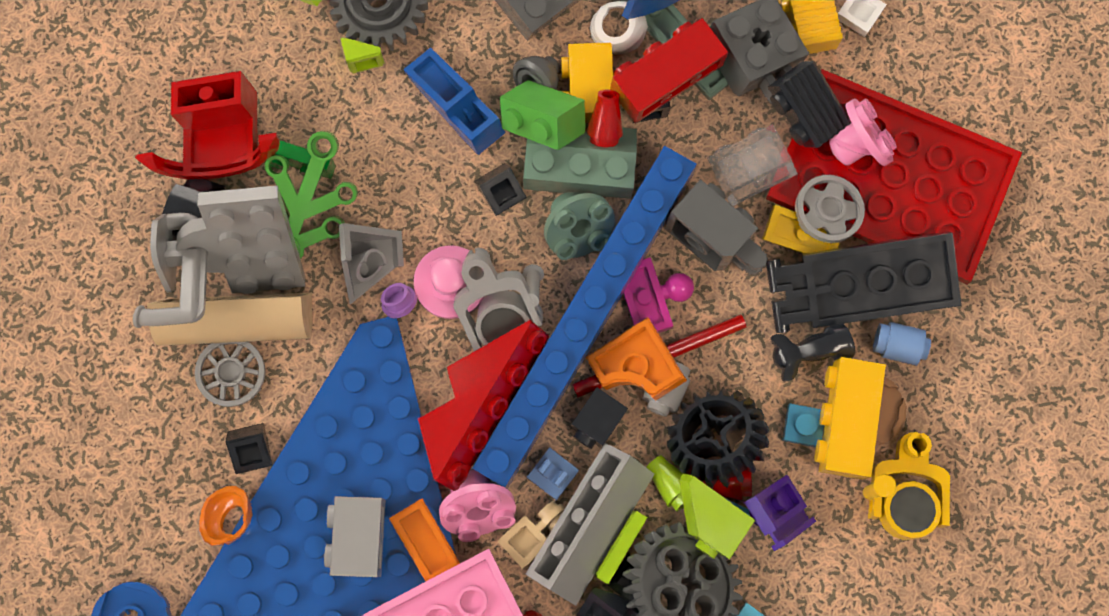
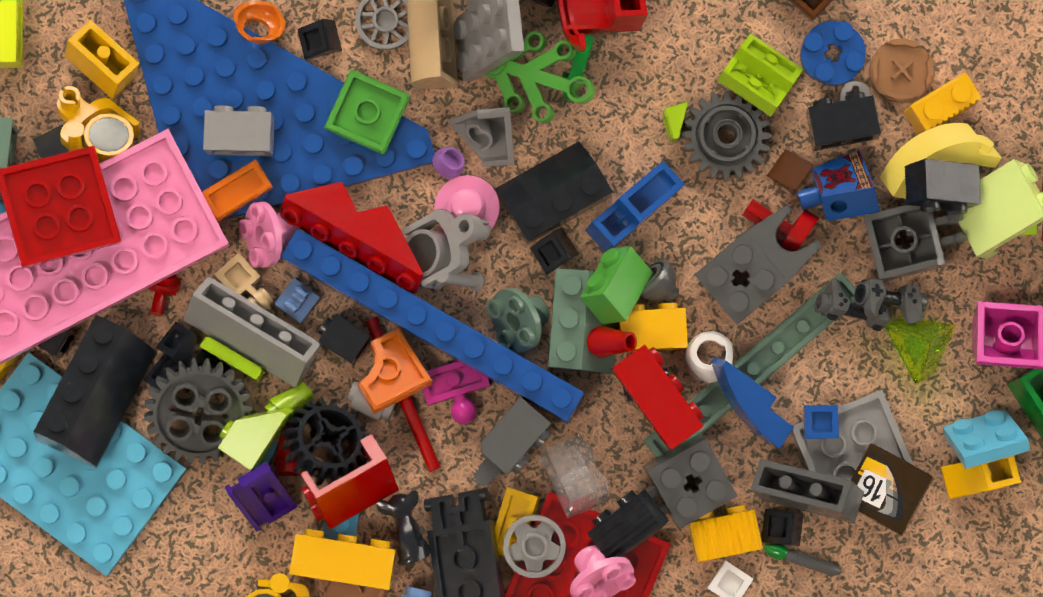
camera: 90 degrees right, 5 degrees up
(337, 389) = (367, 112): none -> bright green tile
(435, 185) = (554, 192): none -> black slope
(777, 401) = (353, 491): none -> red panel

